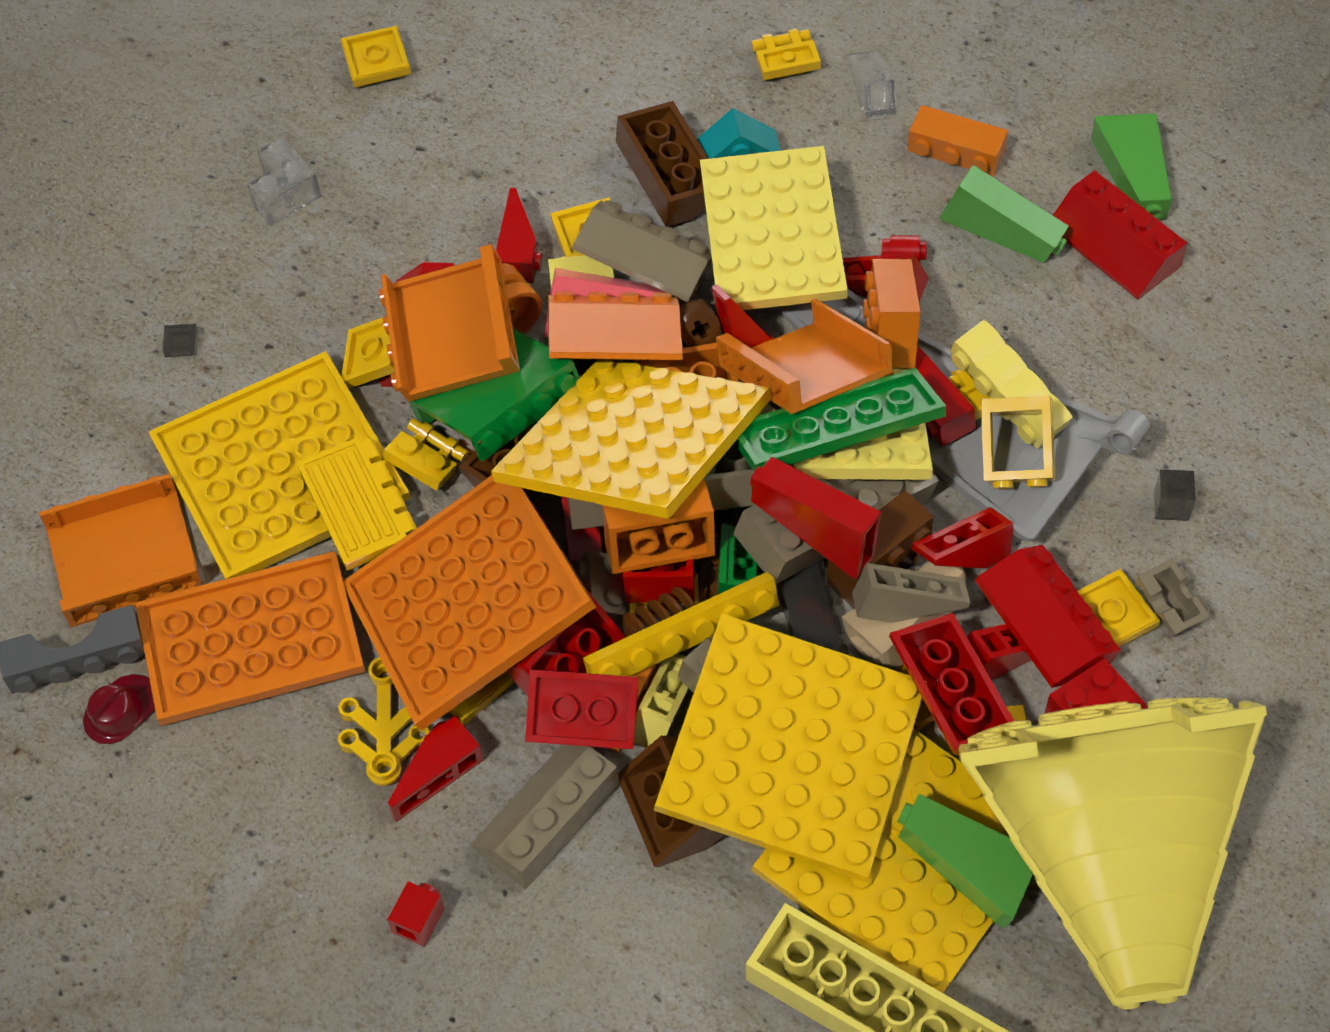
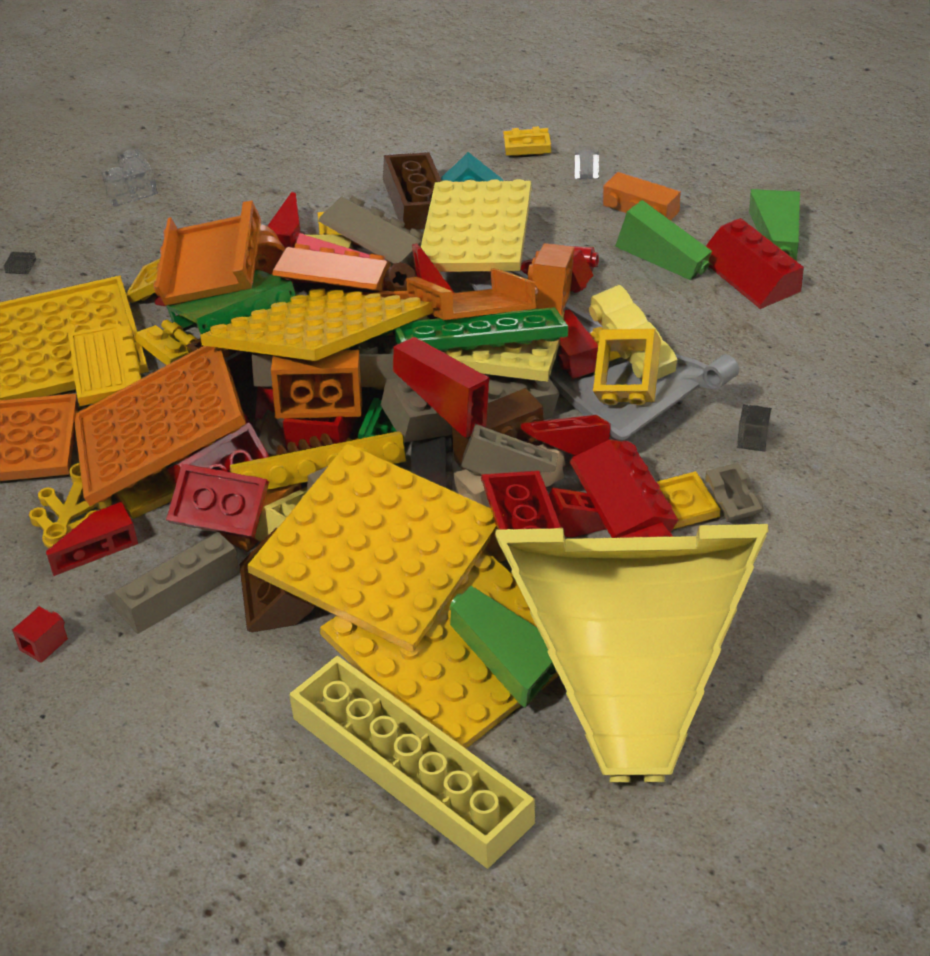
camera: 10 degrees right, 15 degrees down
(375, 56) = (226, 118): yellow plate -> none

